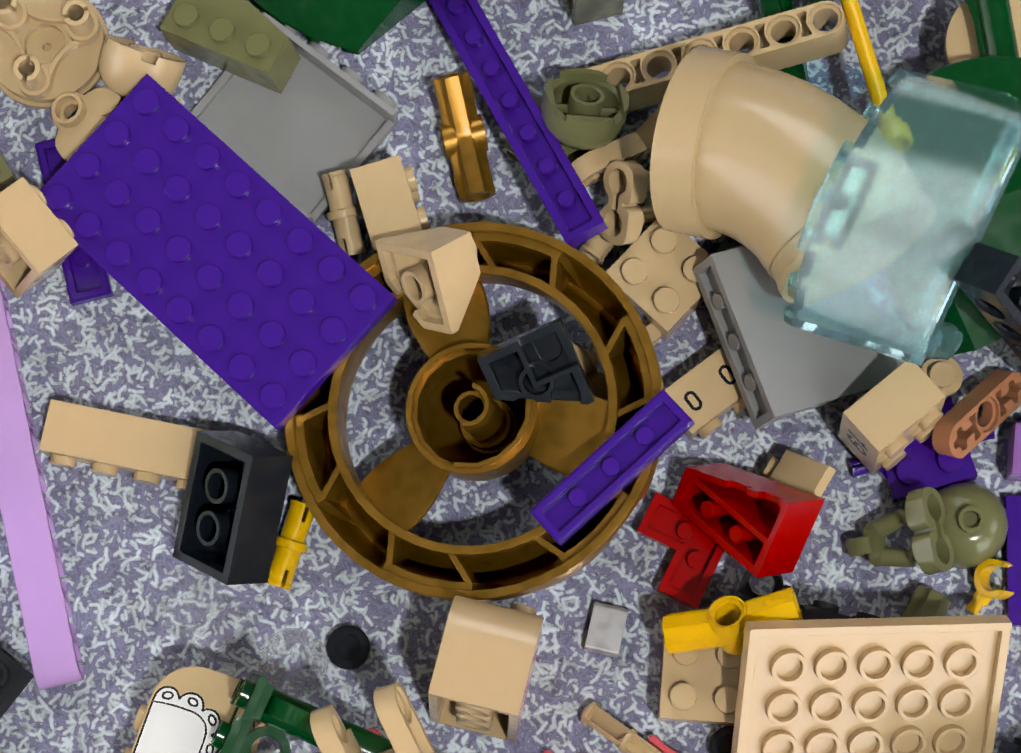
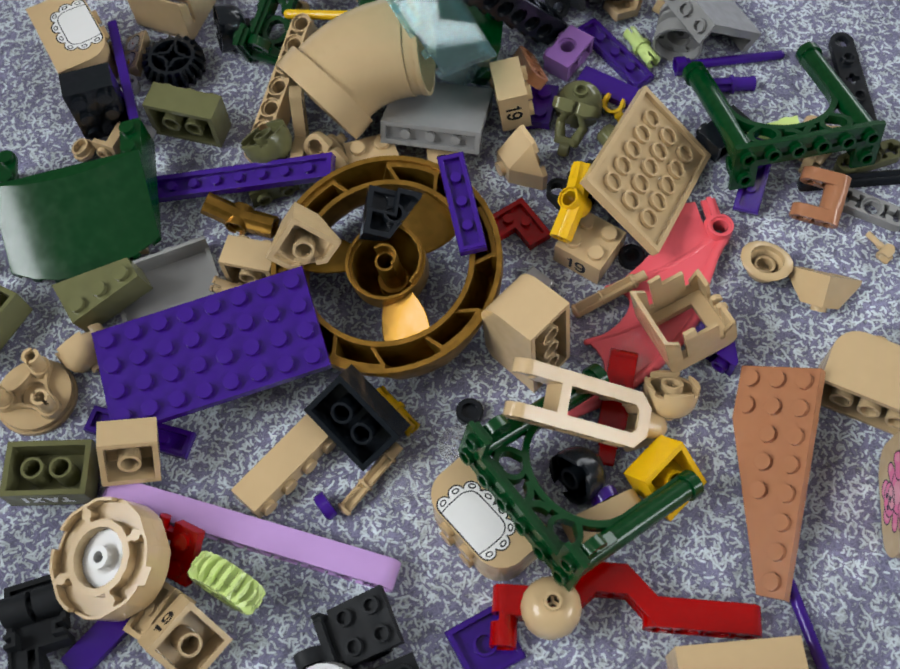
camera: 60 degrees left, 15 degrees down
(91, 112) = (92, 390): tan plate -> none
(104, 533) = (325, 506): none -> dark purple tile
(162, 569) = (369, 479): none -> tan piece
(749, 515) = (521, 175): red wedge -> none

